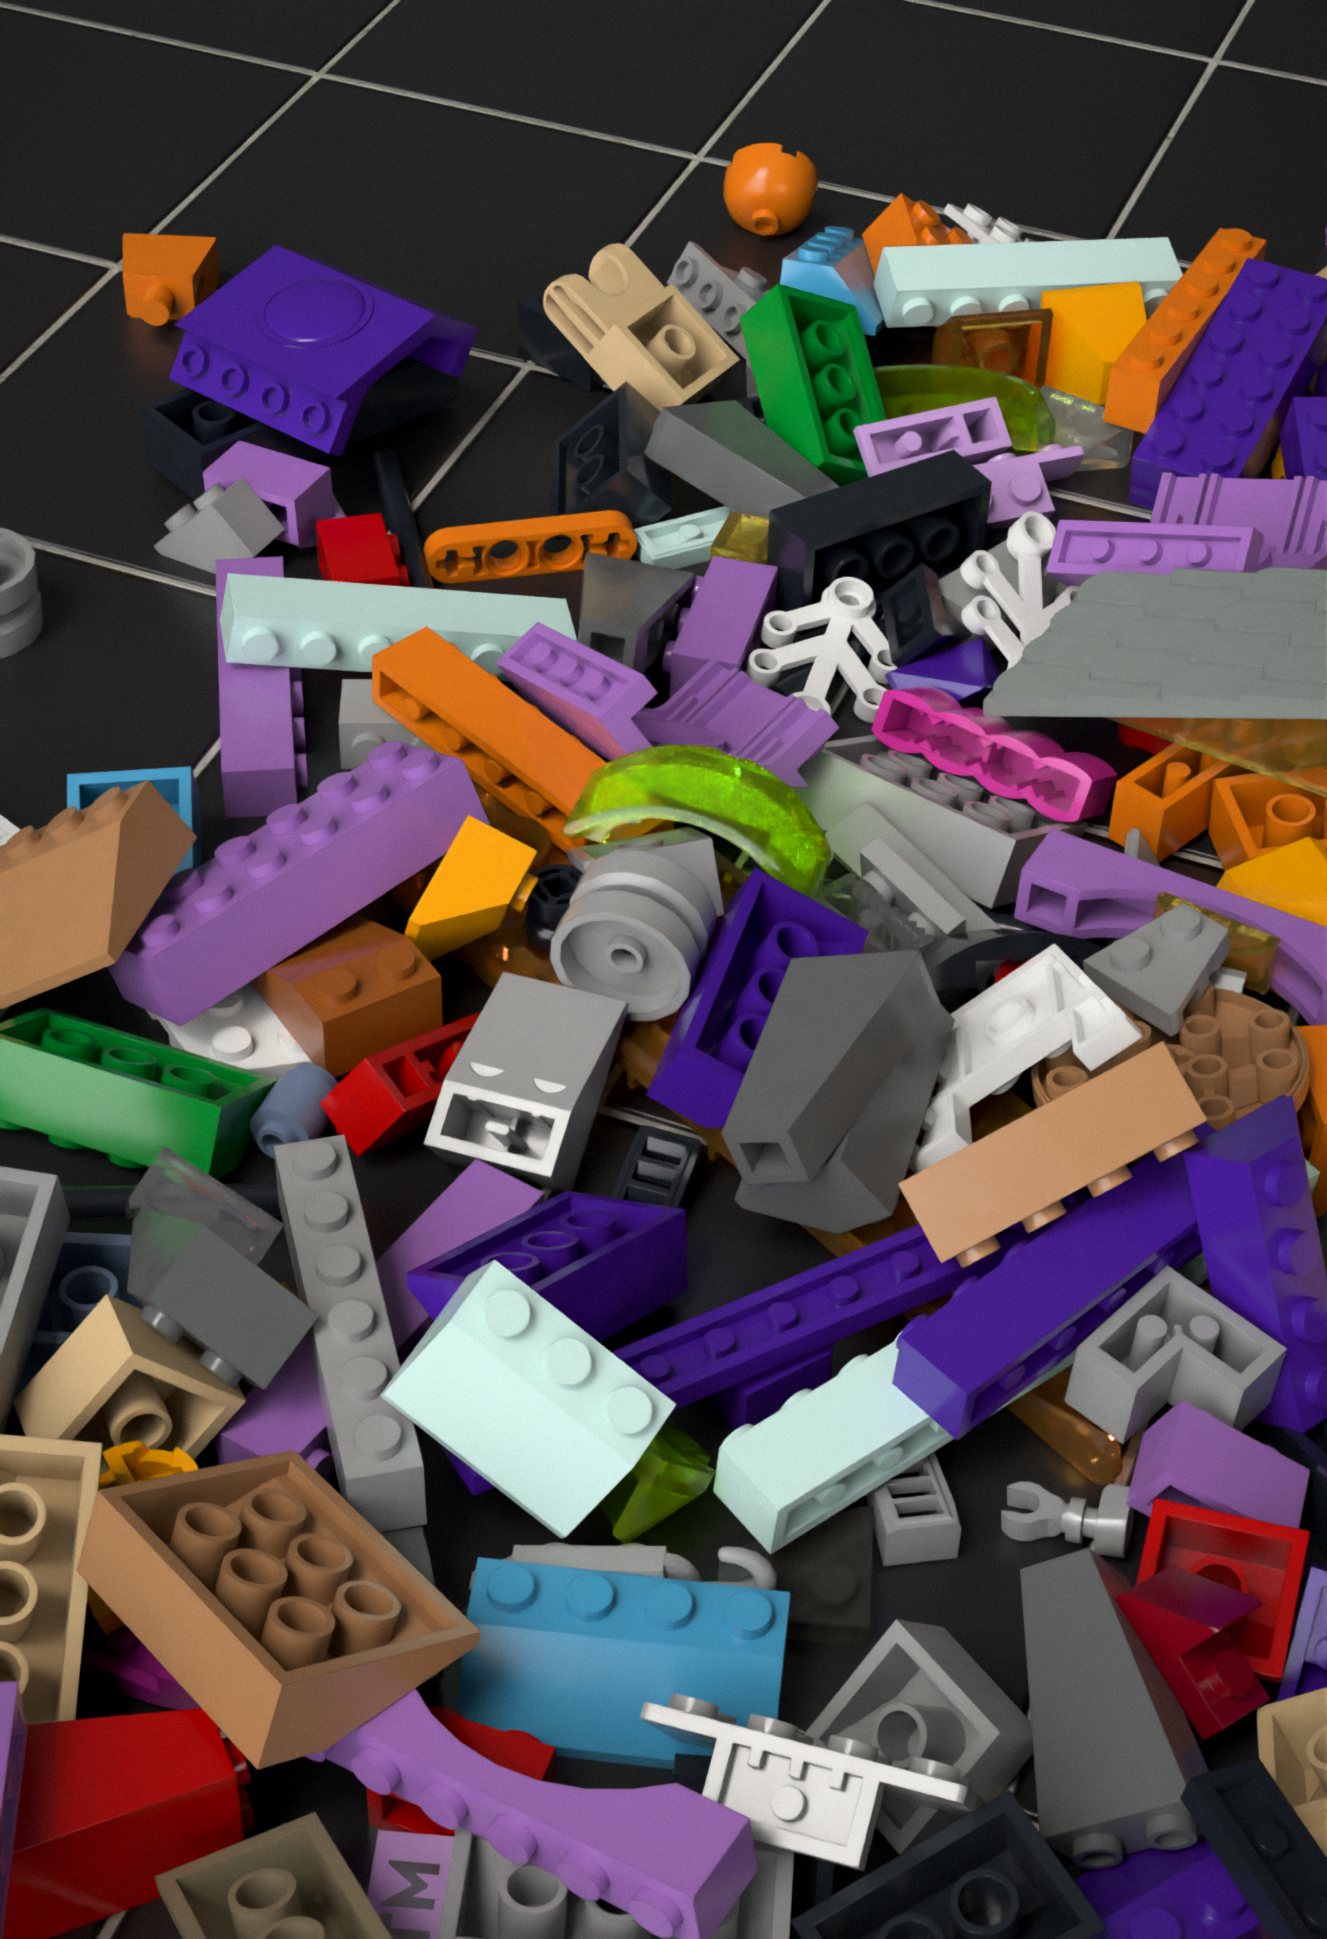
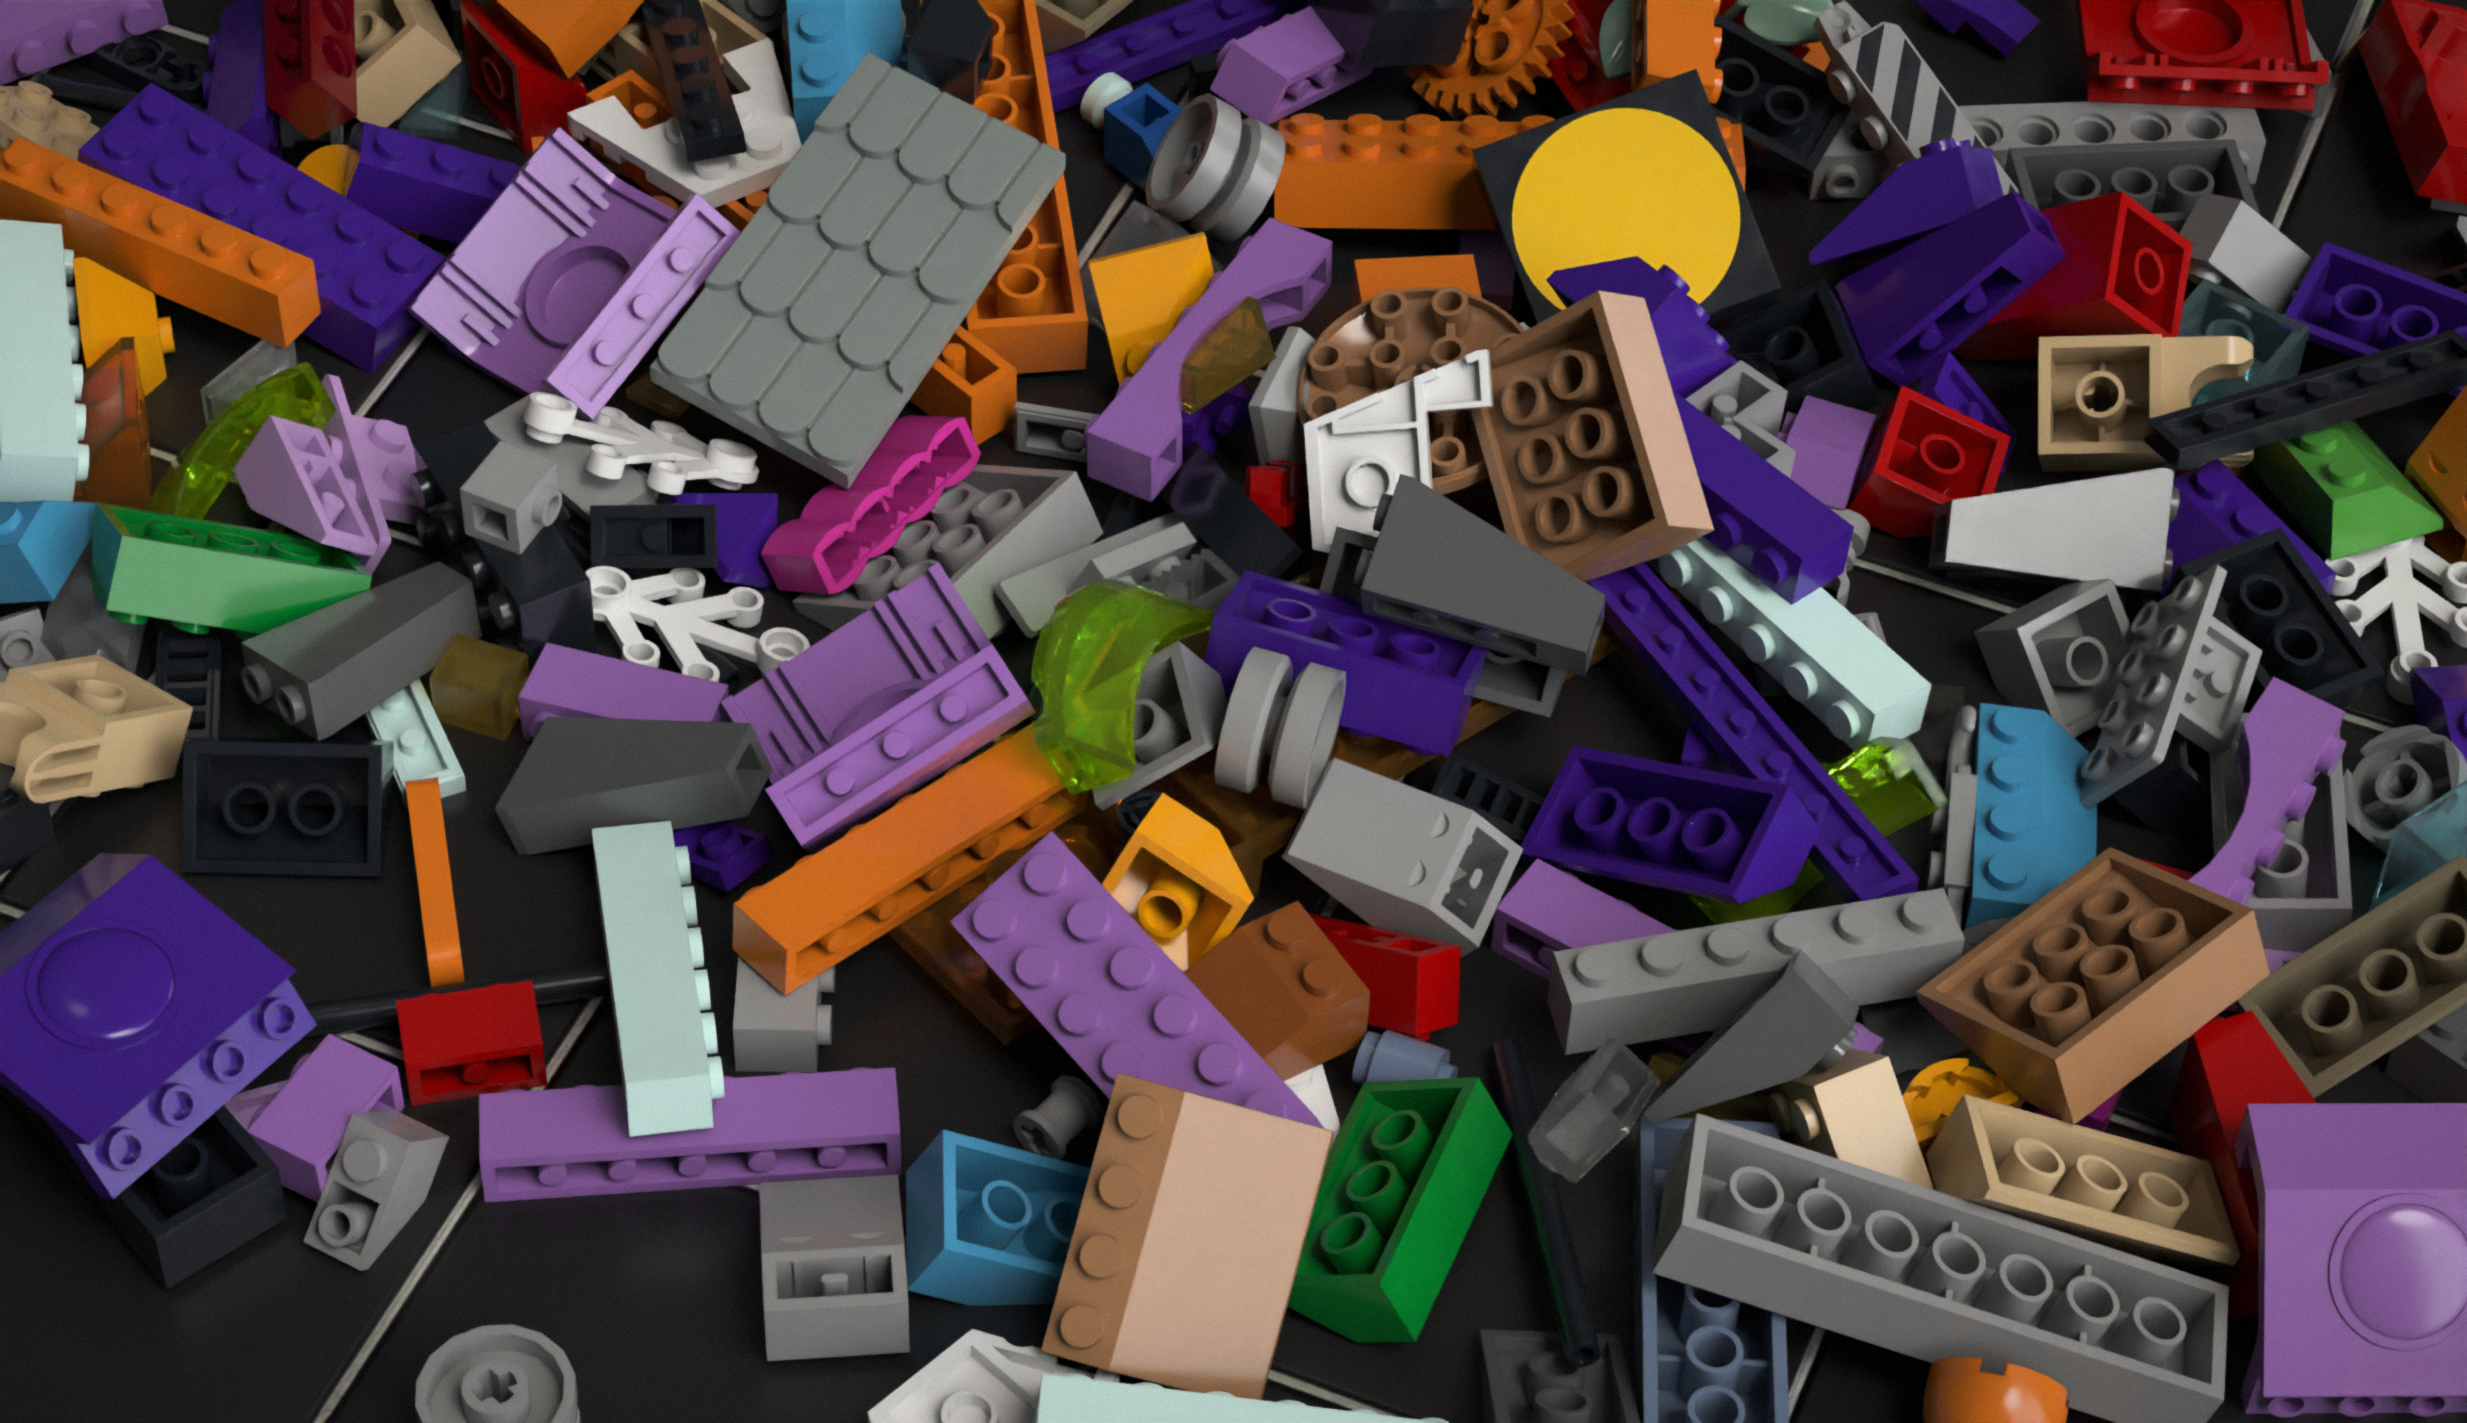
camera: 90 degrees left, 5 degrees up
(97, 731) = (833, 1268): none -> light grey slope
(528, 1399) = (1875, 805): light aqua slope -> none
(875, 478) = (510, 497): none -> light grey brick
(1161, 965) = (1310, 366): light grey wing -> none
(1185, 1633) = (2012, 453): dark red slope -> none

